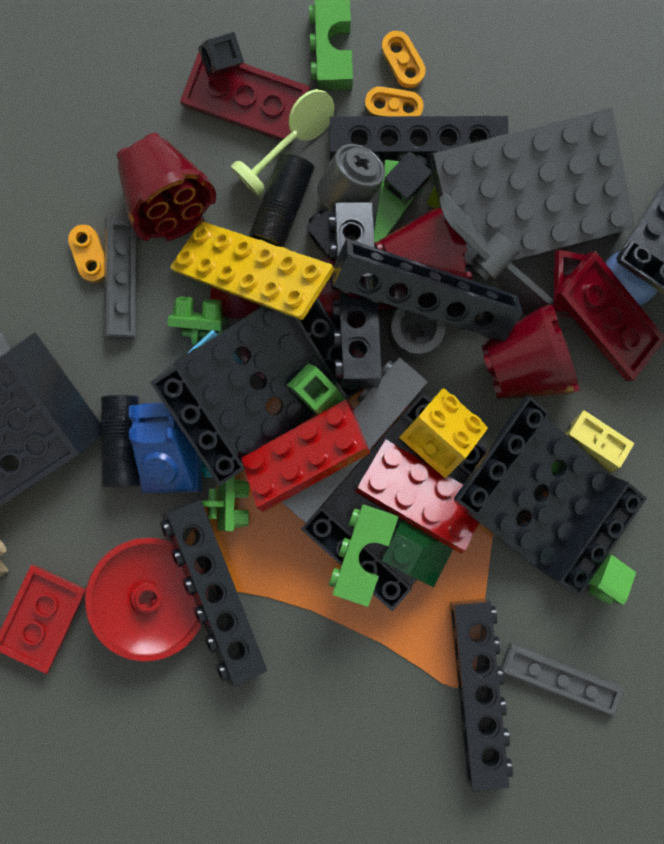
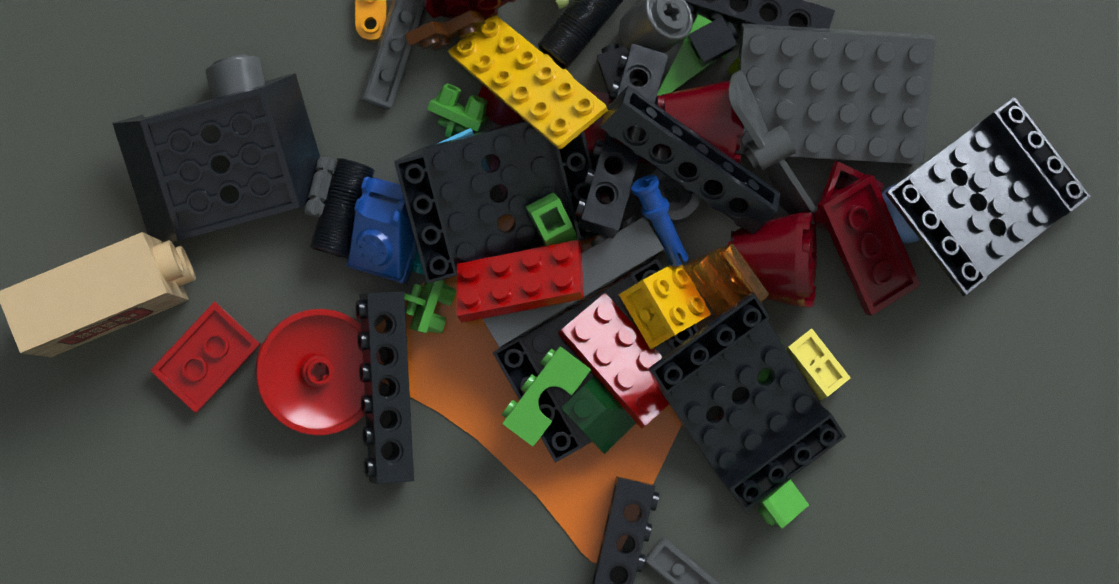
camera: 20 degrees right, 0 degrees up
(92, 428) = (320, 186): none -> dark grey axle
(156, 255) = (438, 34): none -> reddish brown plate
(408, 347) = (656, 209): none -> blue pin
(492, 391) = (724, 278): none -> clear orange slope

